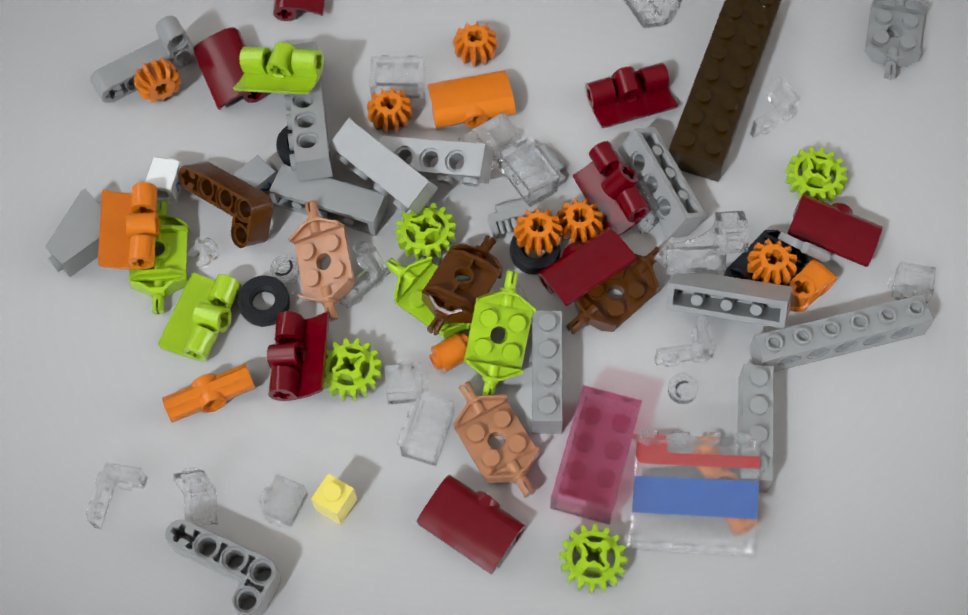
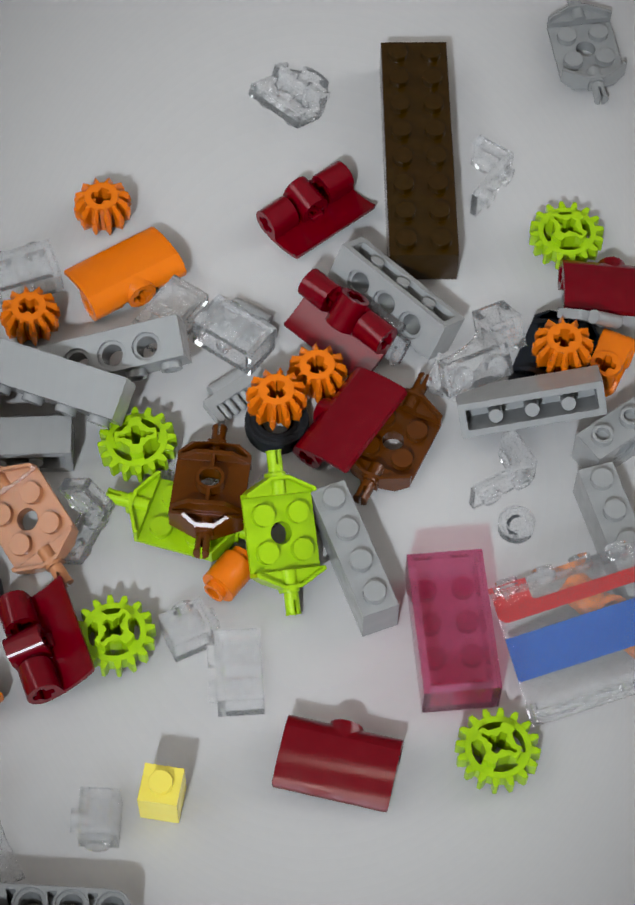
camera: 25 degrees left, 5 degrees down
(492, 417) = (308, 632): nougat plate -> none

